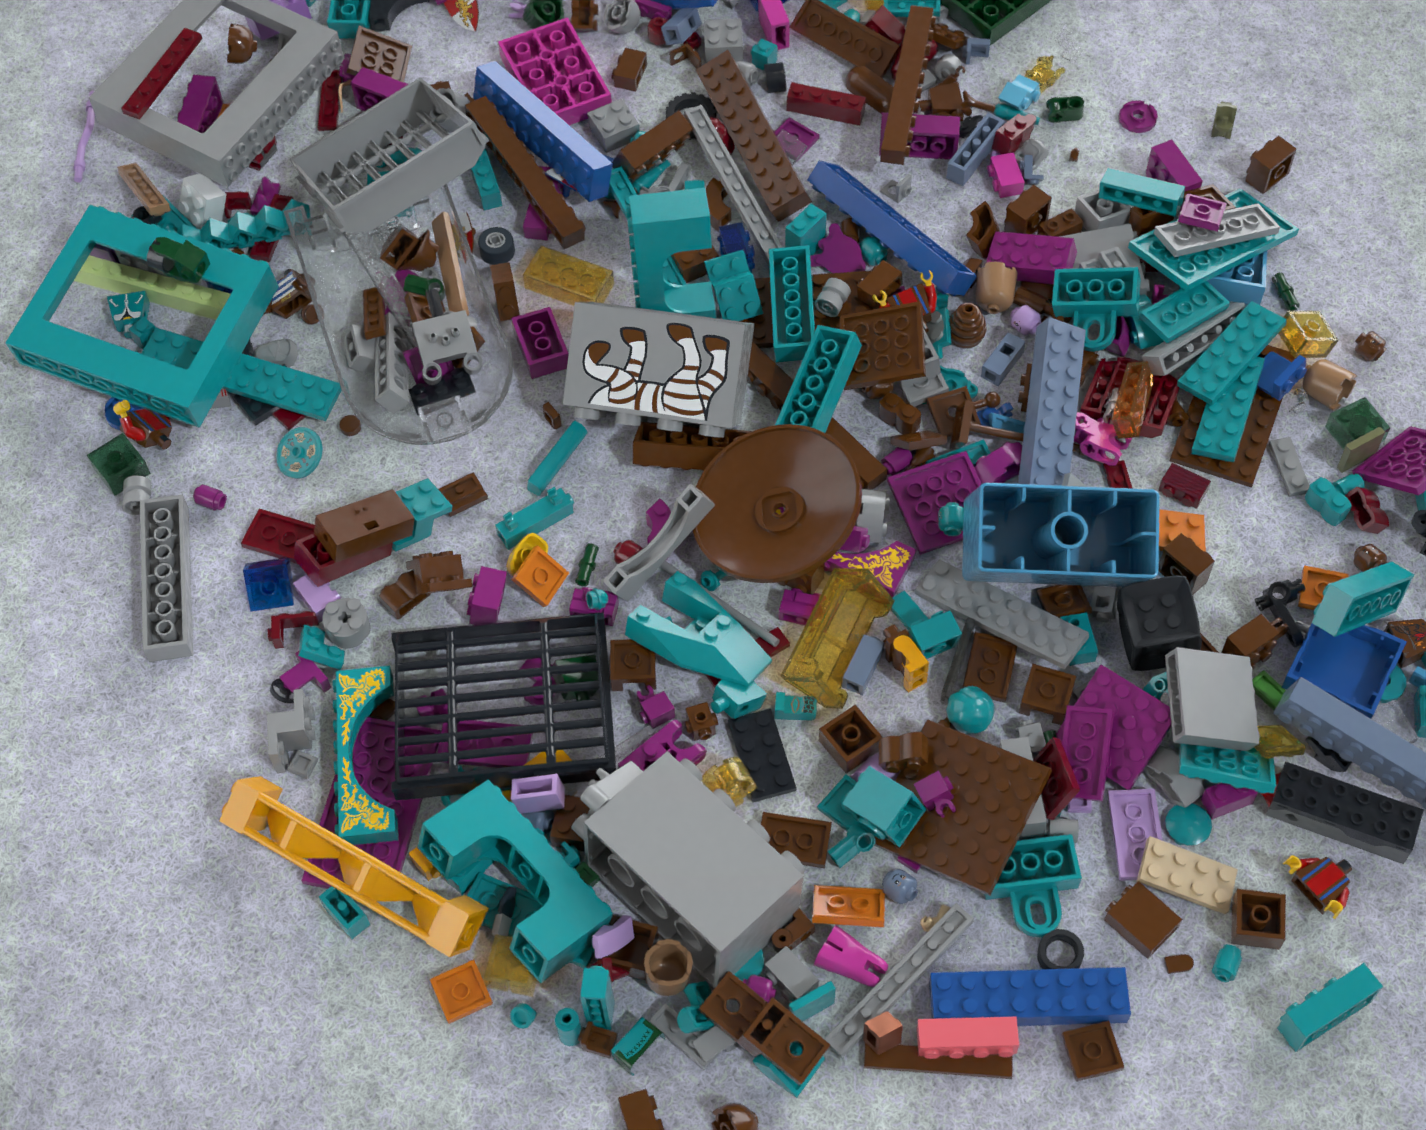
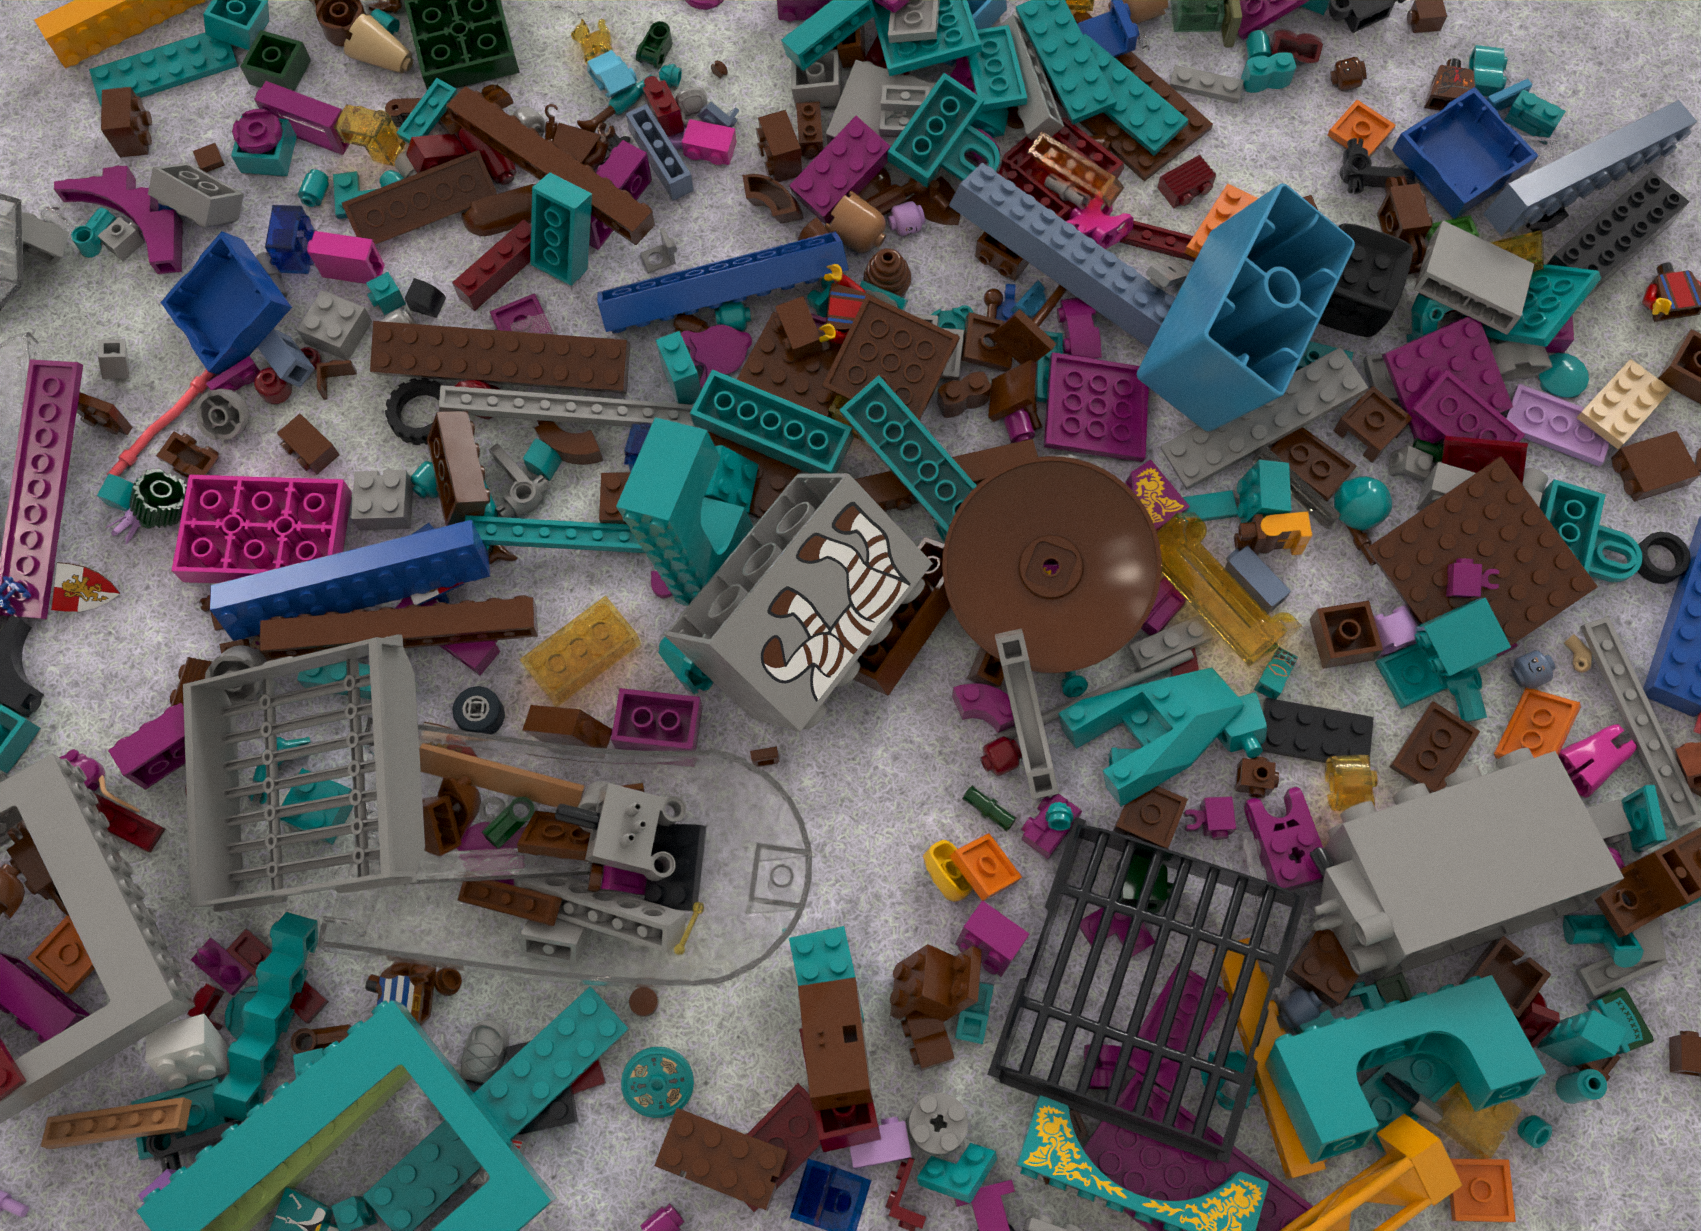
camera: 65 degrees left, 10 degrees up
(178, 260) = (336, 1110): dark green piece -> none
(263, 505) = (722, 1159): none -> reddish brown piece
(379, 54) = (90, 725): plate -> none
(383, 411) = (698, 908): none -> clear yellow hinge
(407, 345) = (595, 877): none -> reddish brown tile
(438, 617) = (974, 1019): none -> teal slope
(464, 493) = (821, 907): reddish brown plate -> none
(535, 517) = (899, 838): teal brick -> none
(538, 793) = (1295, 993): lavender brick -> none
(556, 458) = (827, 779): teal brick -> none
(612, 938) = (1510, 989): lavender slope -> none
(667, 967) = (1560, 945): medium nougat cylinder -> none
(774, 623) = (1170, 642): none -> light grey plate
(832, 297) = (785, 378): light grey wheel -> none
(864, 115) = (560, 228): none -> teal brick
(903, 752) = (1402, 588): reddish brown brick -> none
(951, 519) = (1130, 406): teal head -> none
(977, 48) = (518, 83): sand blue bracket -> none
(1003, 359) = (945, 263): sand blue brick -> none
(1047, 129) = (671, 75): none -> teal plate
(1362, 598) = (1424, 93): teal brick -> none

